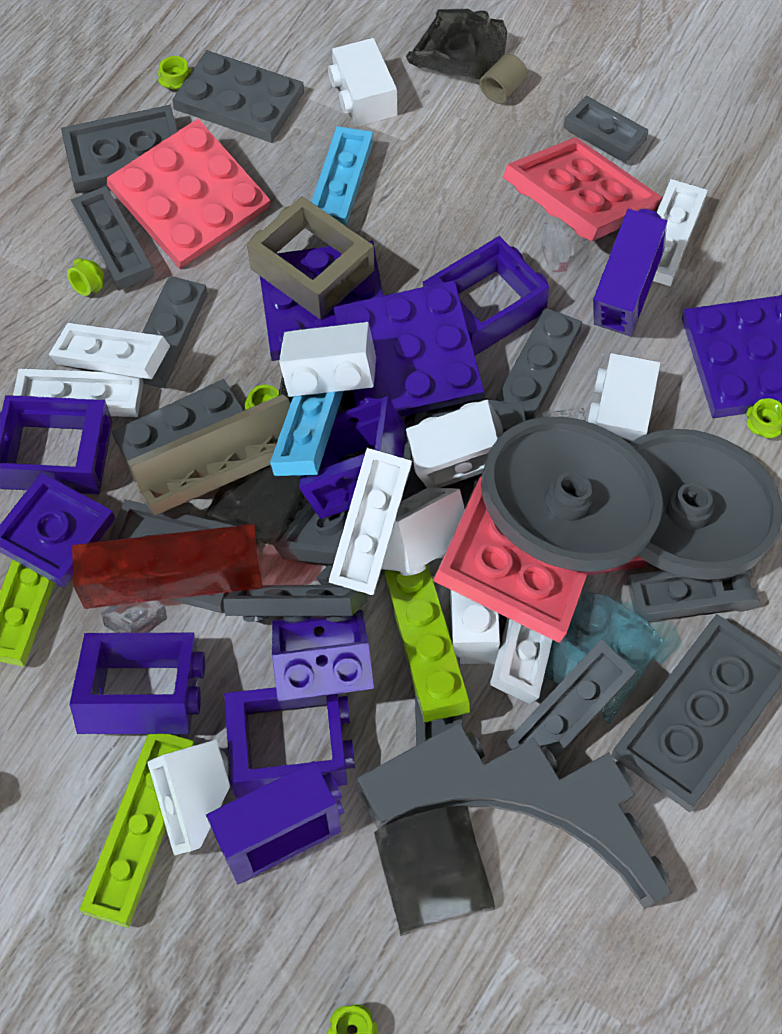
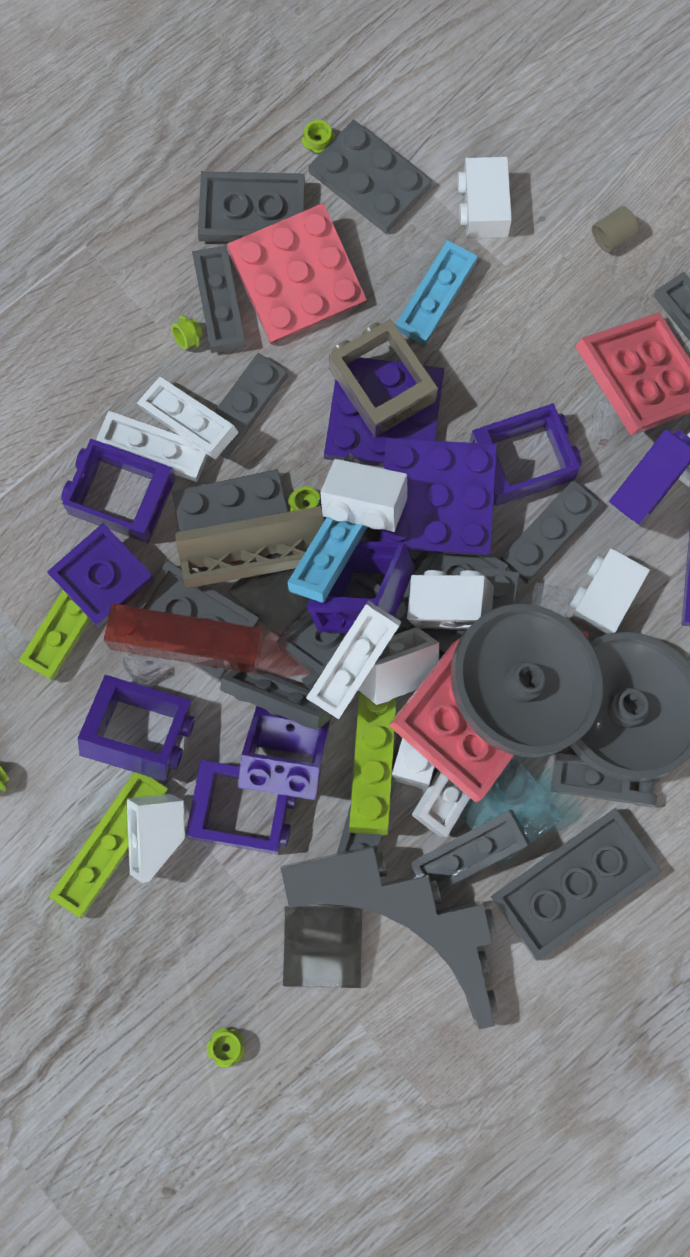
camera: 15 degrees right, 15 degrees up
(277, 821) = (211, 877): dark purple window -> none
(460, 43) = (588, 180): clear smoke slope -> none

